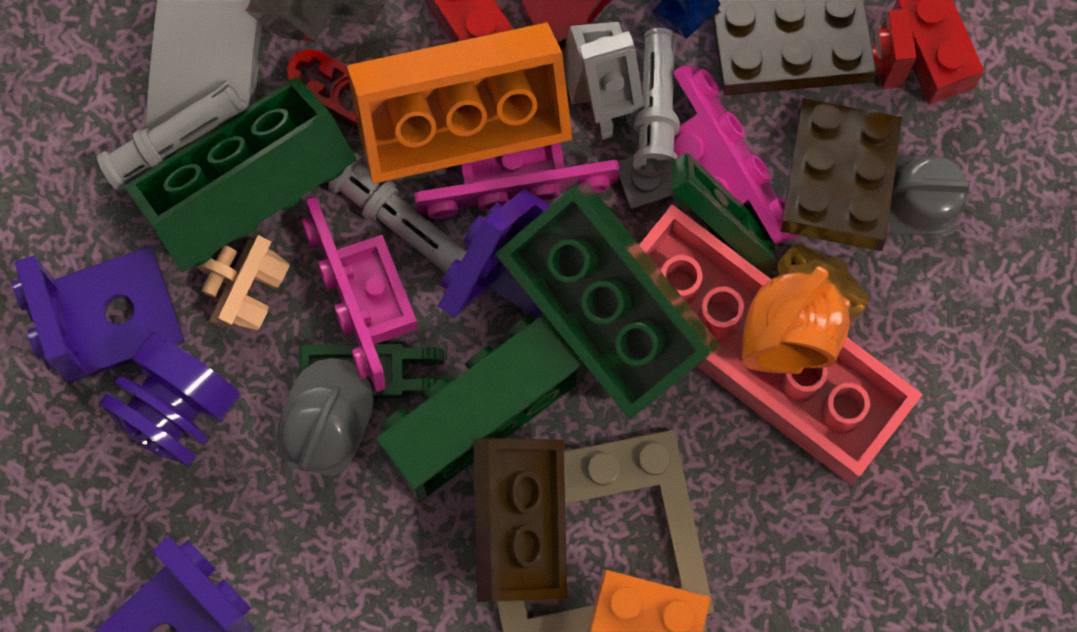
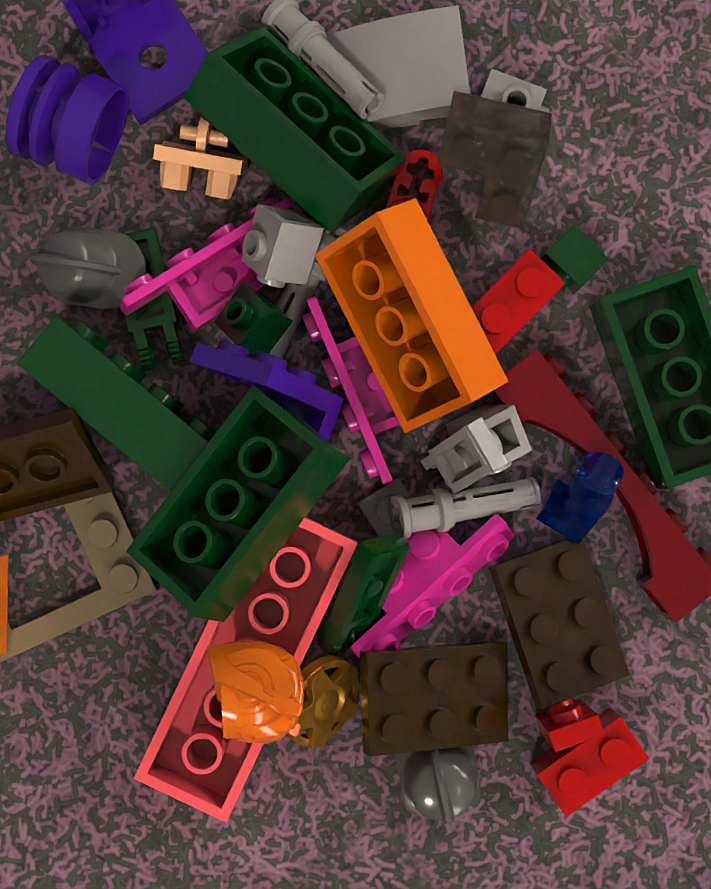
camera: 75 degrees right, 10 degrees up
(356, 213) = (281, 245): none -> light grey brick
(421, 263) = (252, 320): none -> dark green plate

